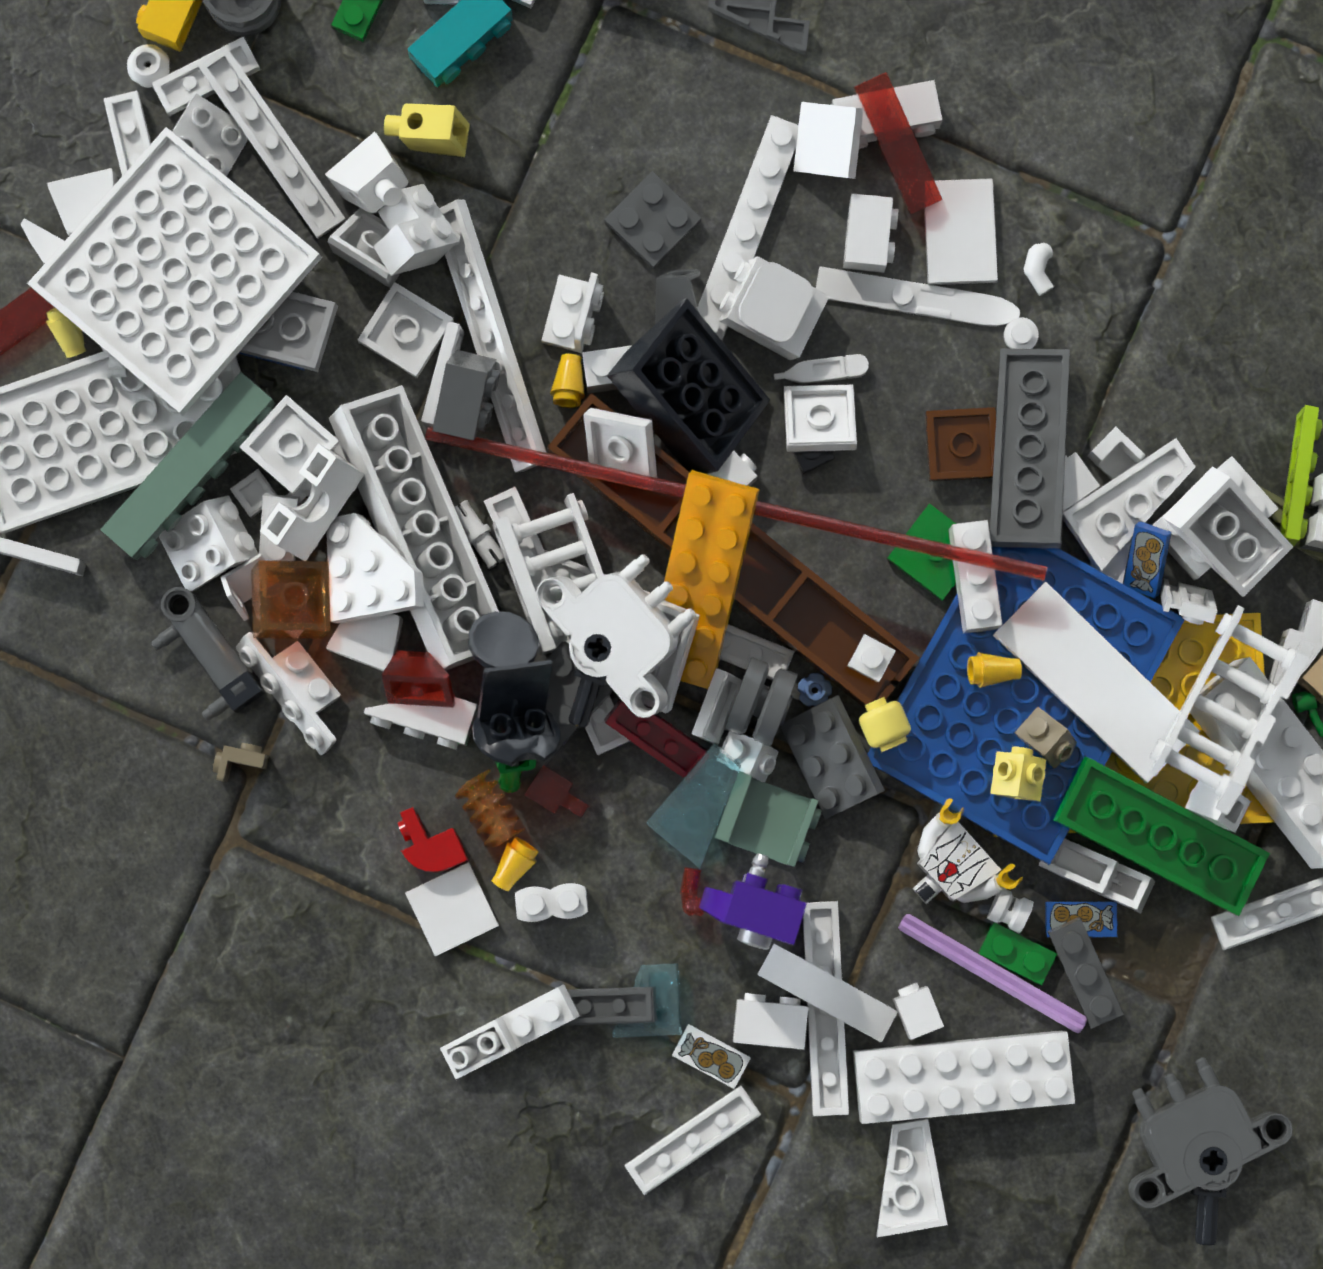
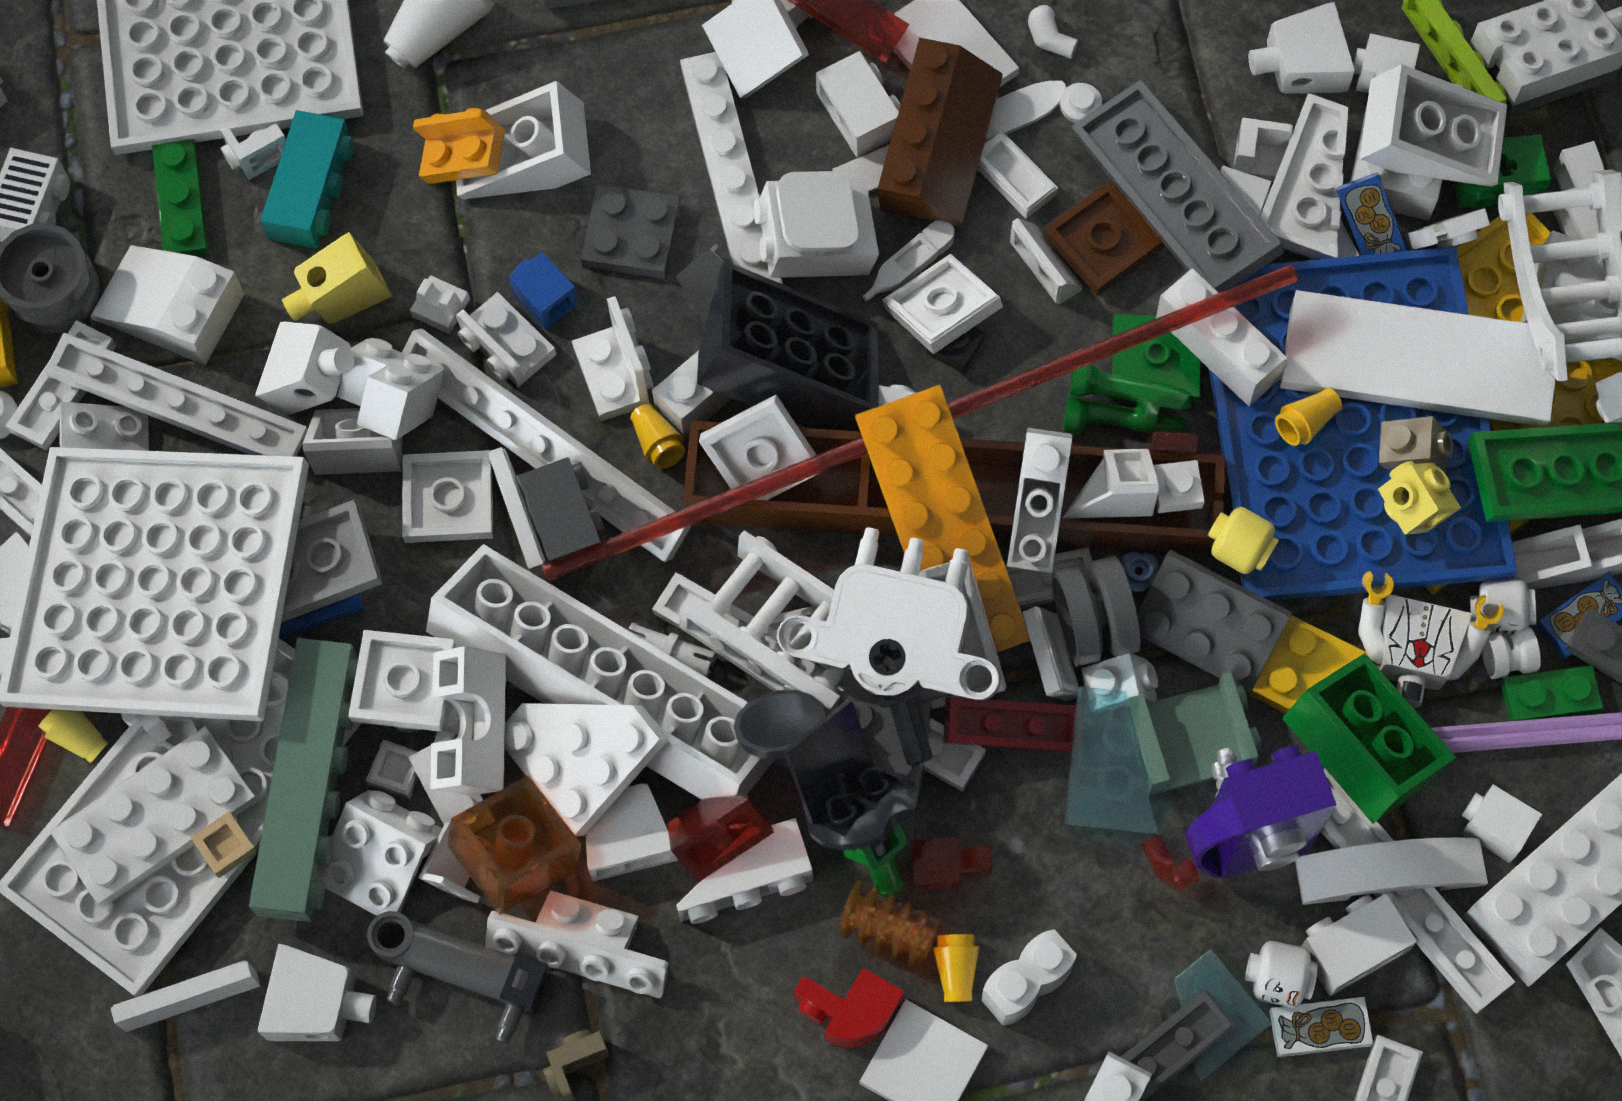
camera: 30 degrees left, 15 degrees down
(81, 424) = (152, 816): none -> white plate
(106, 609) = (311, 999): none -> white torso
(112, 474) = (223, 844): none -> tan plate
(313, 61) = (170, 301): none -> white slope
(490, 186) = (439, 303): none -> white tile
(517, 242) = (506, 339): none -> white bracket
(563, 225) = (543, 290): none -> blue brick
(577, 82) = (459, 145): none -> light orange bracket
(620, 107) = (541, 144): none -> white slope
(708, 1009) = (1282, 974): none -> white head
(775, 605) = (1039, 500): none -> white slope
(833, 630) = (1119, 487): none -> white slope
(872, 903) = (1368, 737): none -> green brick
(874, 825) = (1300, 661): none -> yellow wing
(893, 623) = (1172, 442): none -> clear red tile
(904, 295) = (939, 133): none -> reddish brown slope
(904, 589) = (1141, 418): none -> green piece
(913, 433) = (1044, 261): none -> white slope
(938, 355) = (1015, 175): none -> white tile
(1036, 881) = (1517, 602): none -> white head
(1200, 405) = (1306, 53): none -> white torso
(1248, 450) = (1382, 53): none -> white brick
(1281, 596) = (1521, 162): none -> green brick

